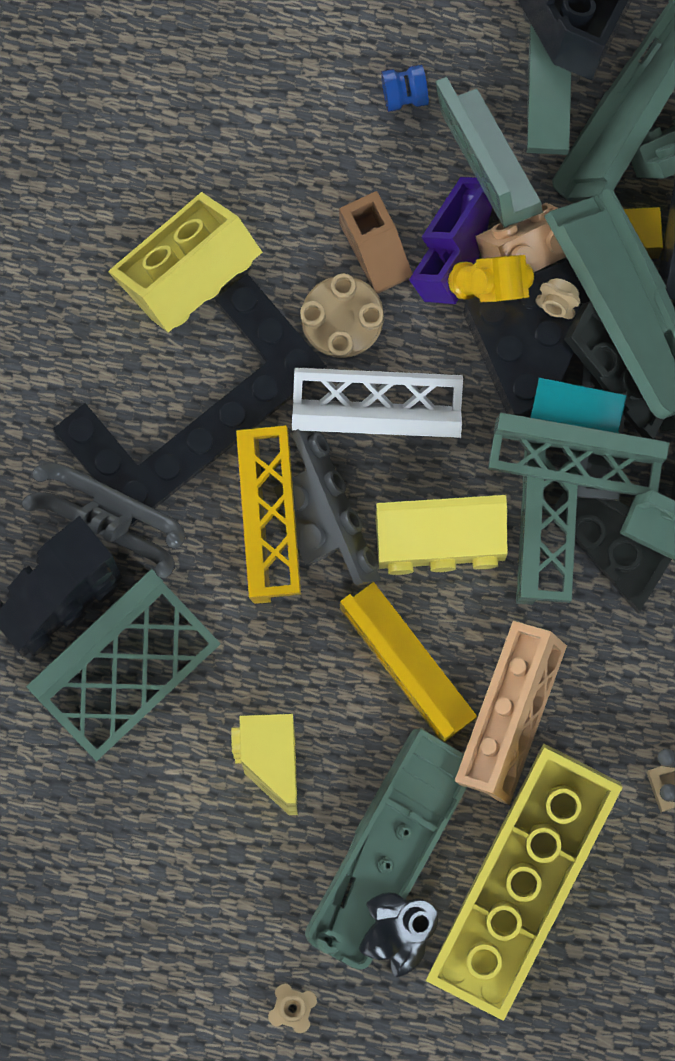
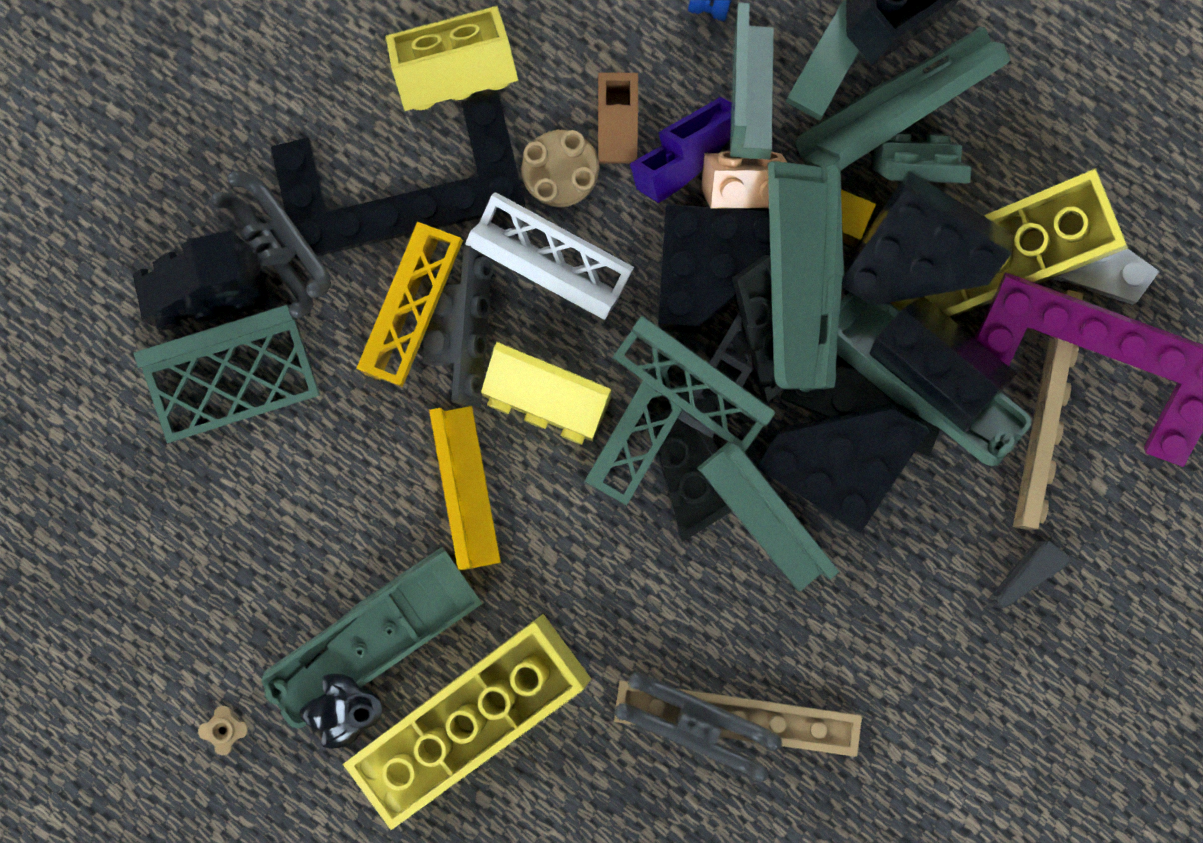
camera: 30 degrees right, 5 degrees up
(268, 756) = (298, 518): light yellow slope -> none
(492, 279) = (696, 196): yellow connector -> none
(511, 711) = (529, 574): light nougat fence -> none
(558, 298) = (744, 240): tan plate -> none
(578, 405) = (714, 342): teal slope -> none

